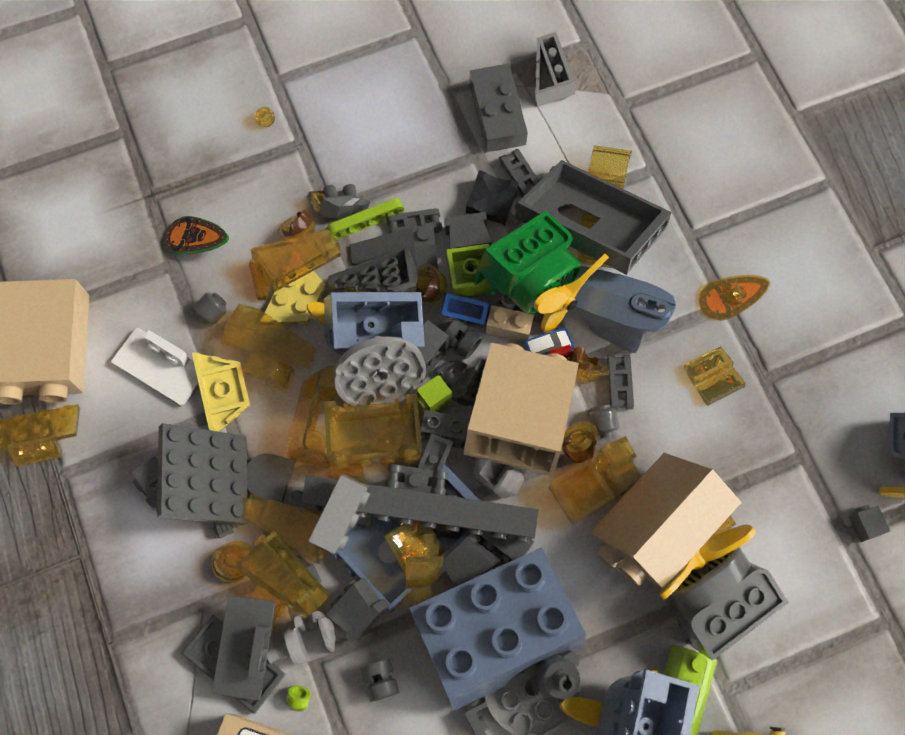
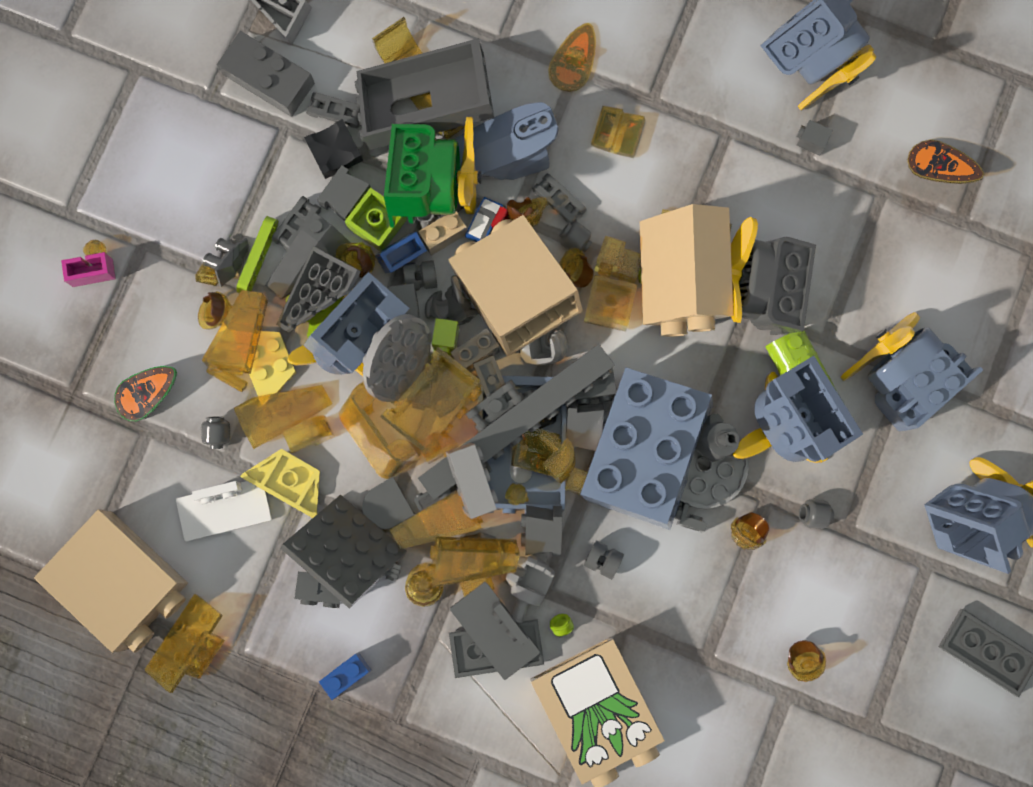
camera: 45 degrees left, 10 degrees up
(109, 568) = (345, 676): none -> blue piece
(240, 121) = (79, 272): none -> dark pink piece
(365, 562) = (516, 494): none -> clear yellow plate

